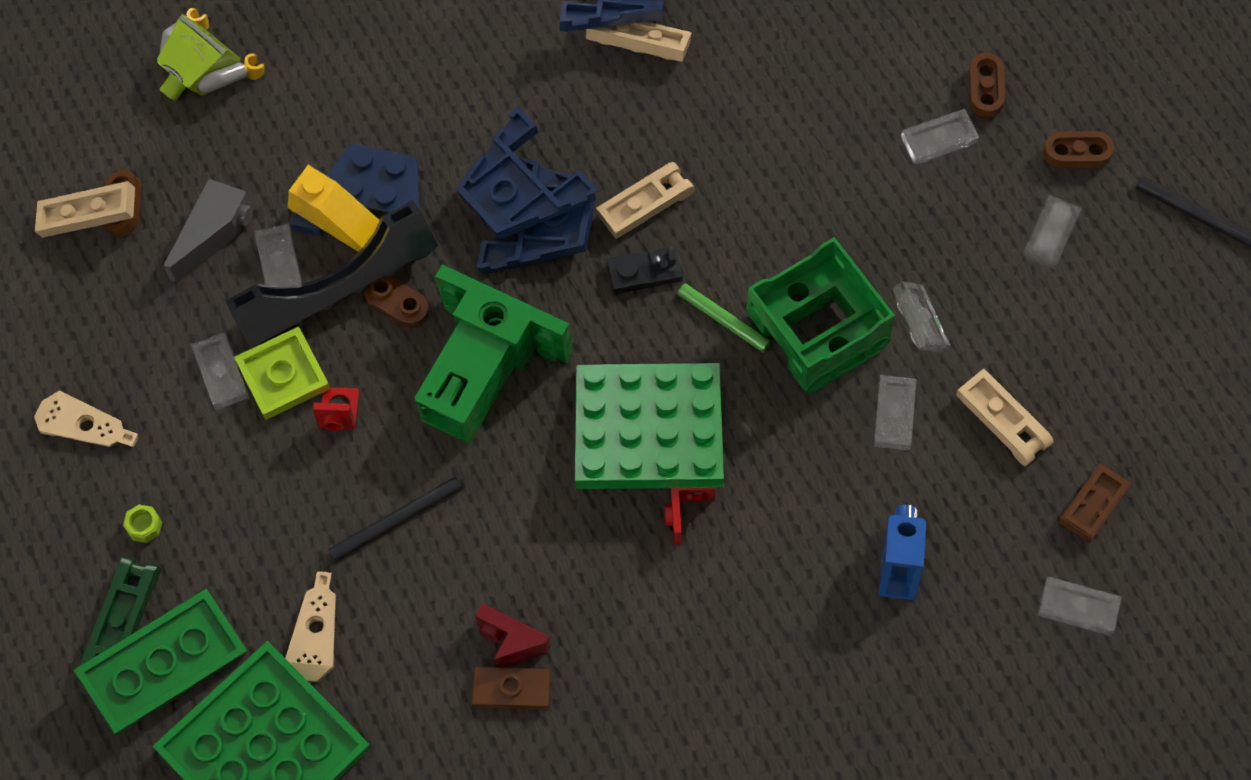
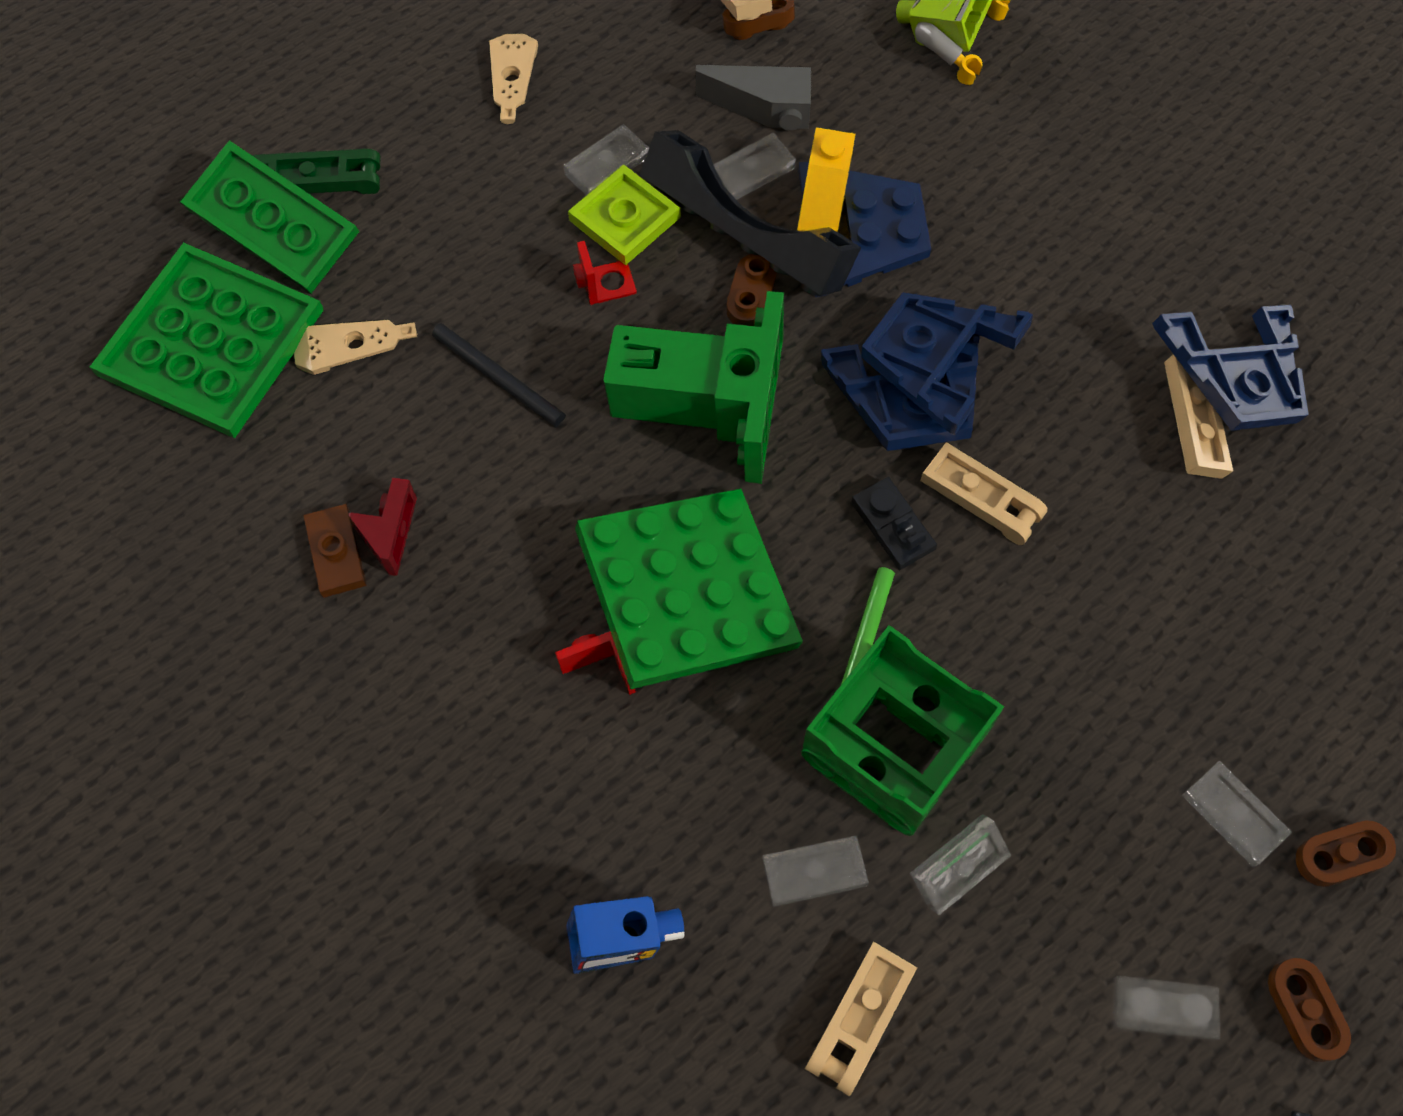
camera: 70 degrees right, 0 degrees up
(142, 523) = (419, 156): lime tile -> none

